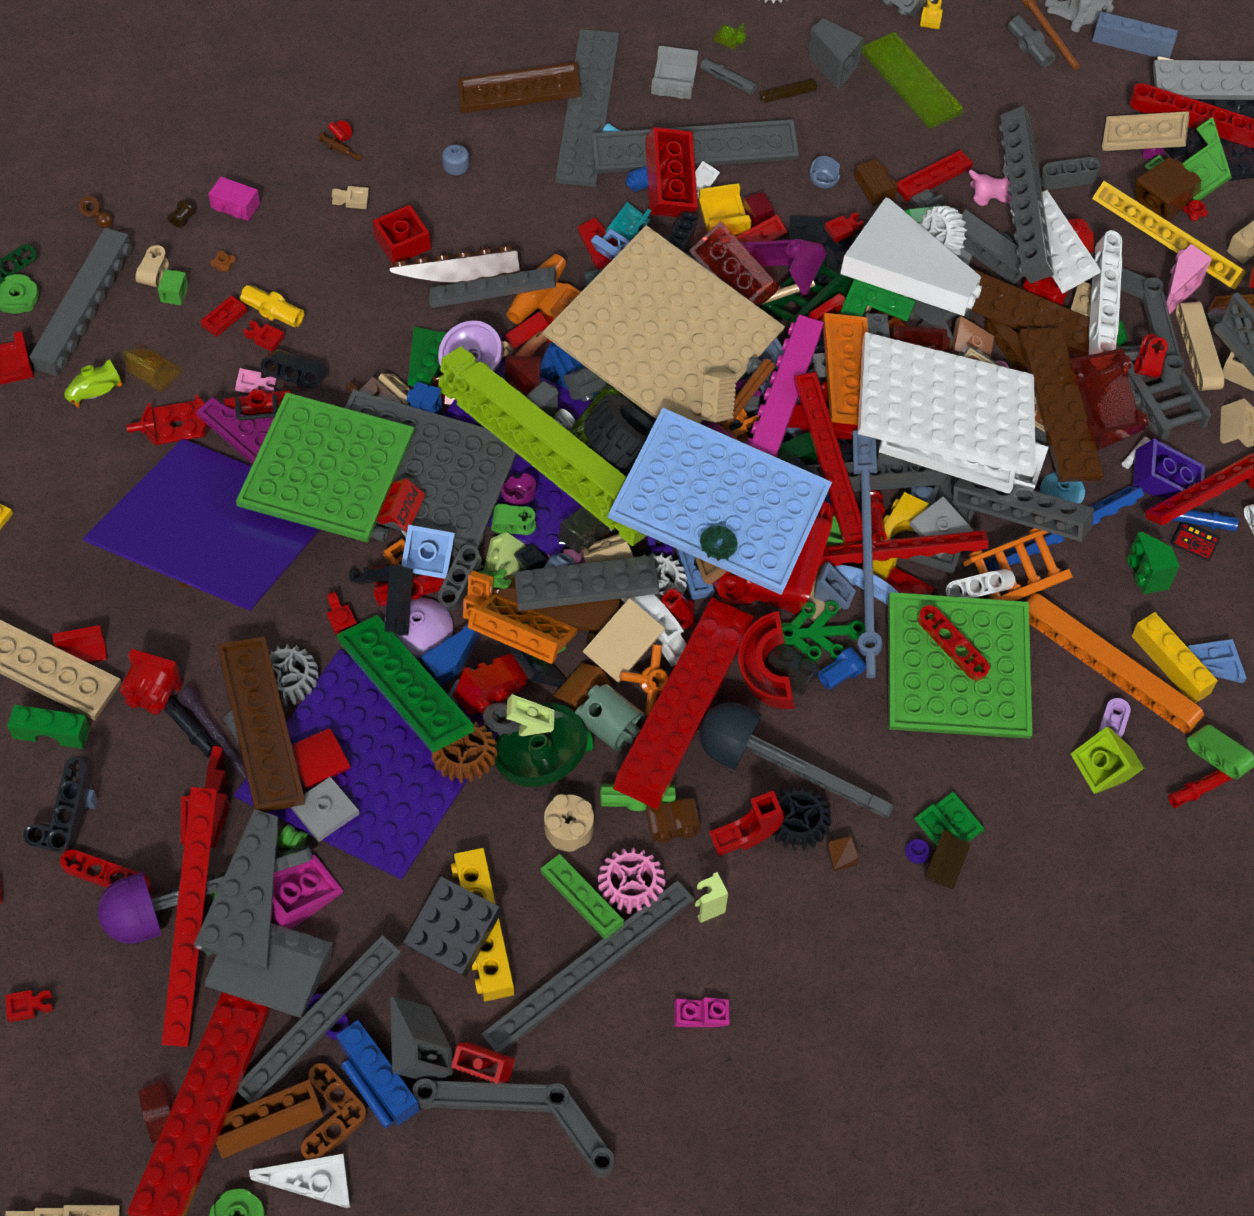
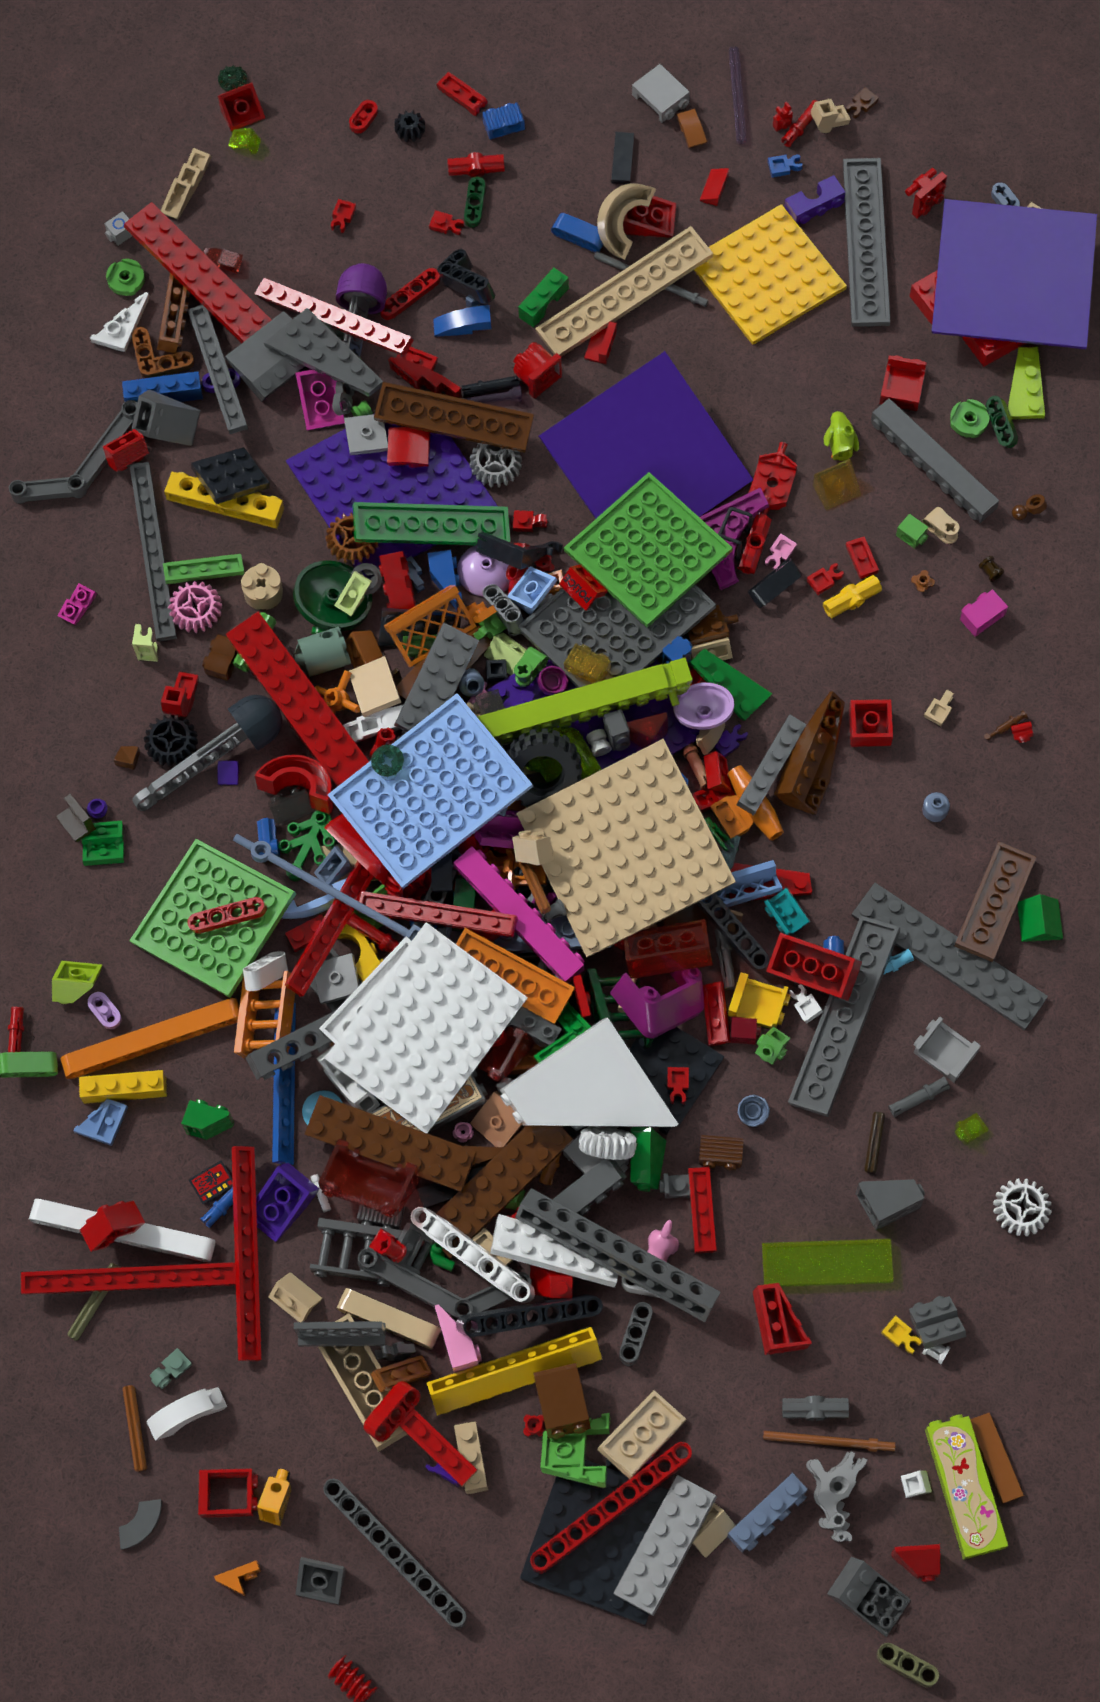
camera: 125 degrees right, 10 degrees up
(120, 795) = (463, 321): none -> blue slope
(487, 460) = (587, 664): none -> clear yellow brick
(514, 57) = (1039, 919): none -> green slope
(758, 180) = (772, 1045): none -> bright green brick
(795, 745) = (228, 772): none -> dark purple slope
(987, 86) = (777, 1321): none -> red wedge
(1134, 235) = (520, 1312): none -> black beam

